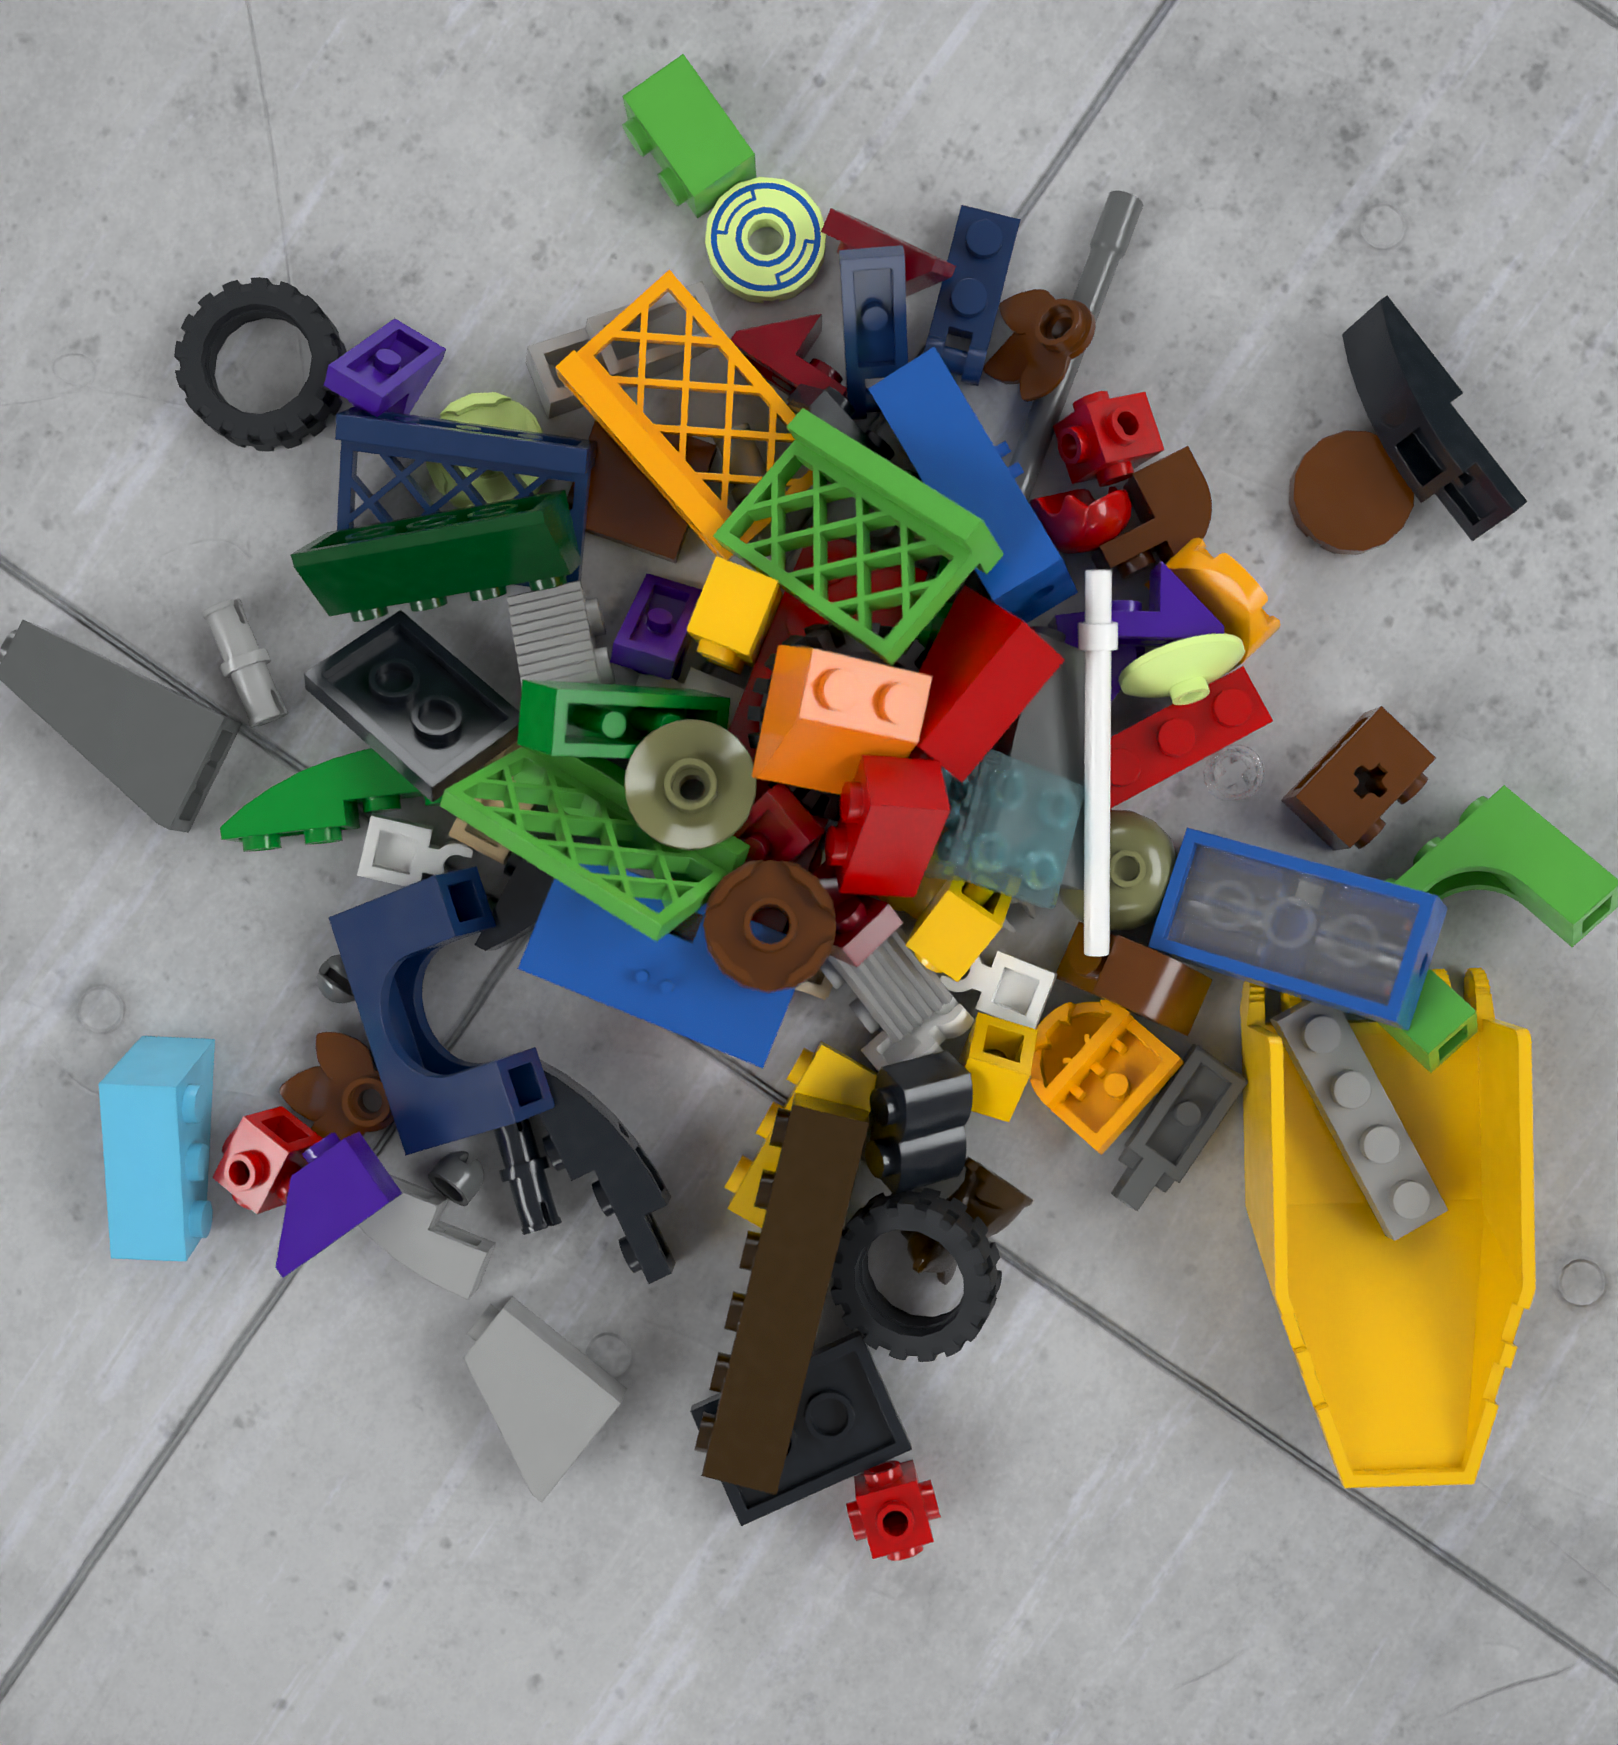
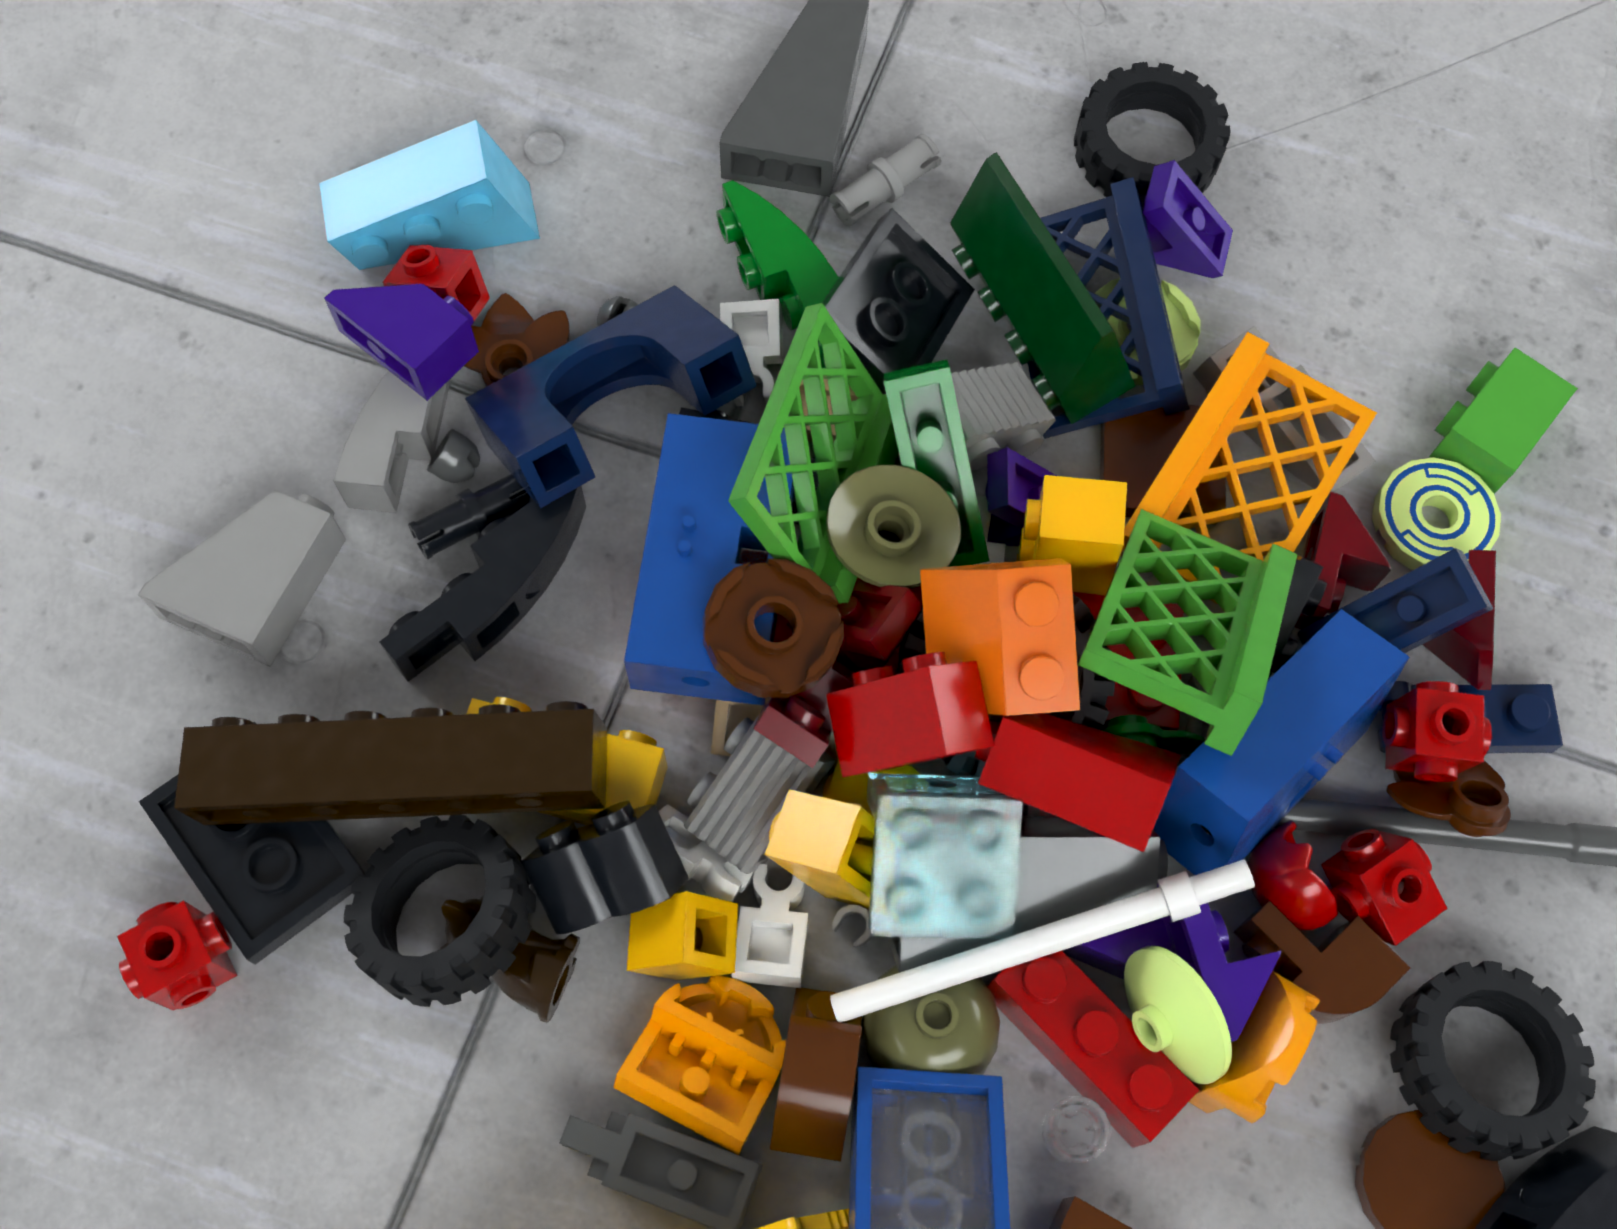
camera: 70 degrees right, 20 degrees down
(982, 357) = (1436, 732): none -> red brick
(1288, 344) = (1546, 1029): none -> black tyre

